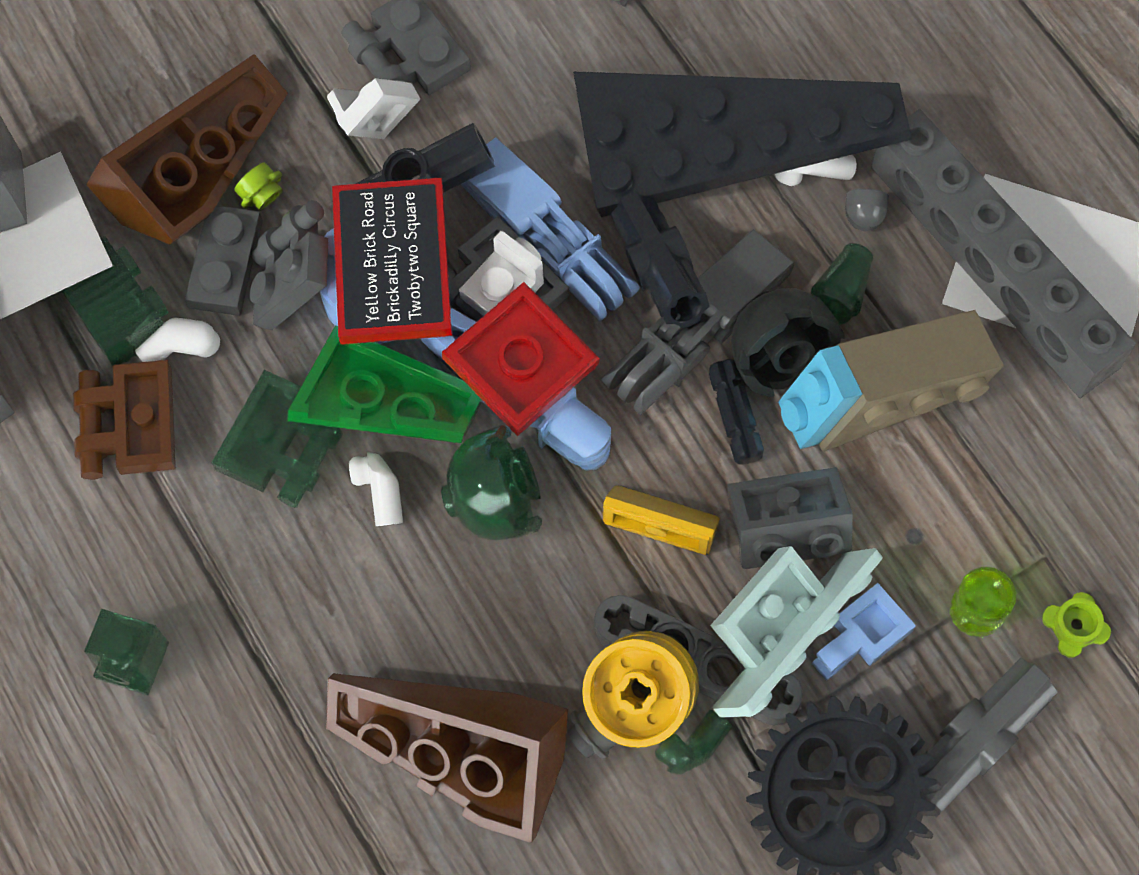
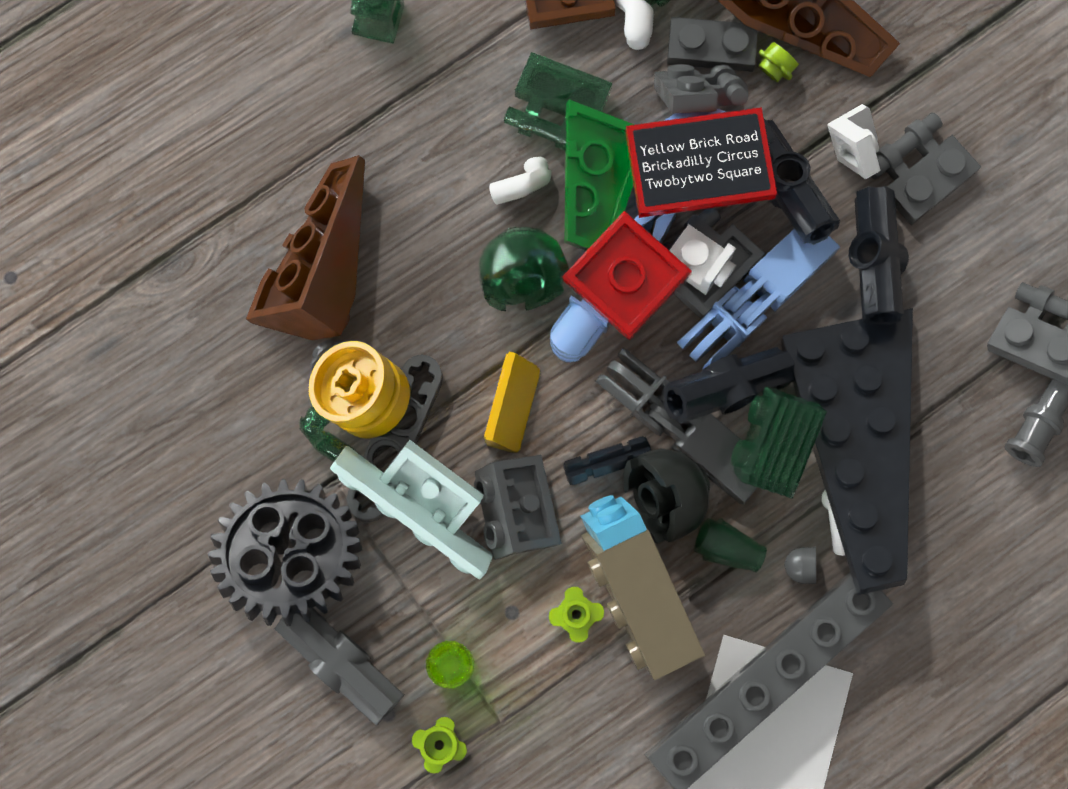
camera: 85 degrees right, 10 degrees up
(543, 94) = (878, 256): none -> black piece
(732, 208) = (777, 442): none -> clear green brick
(867, 628) = (425, 572): light blue plate -> none
(920, 473) = (579, 627): none -> lime plate

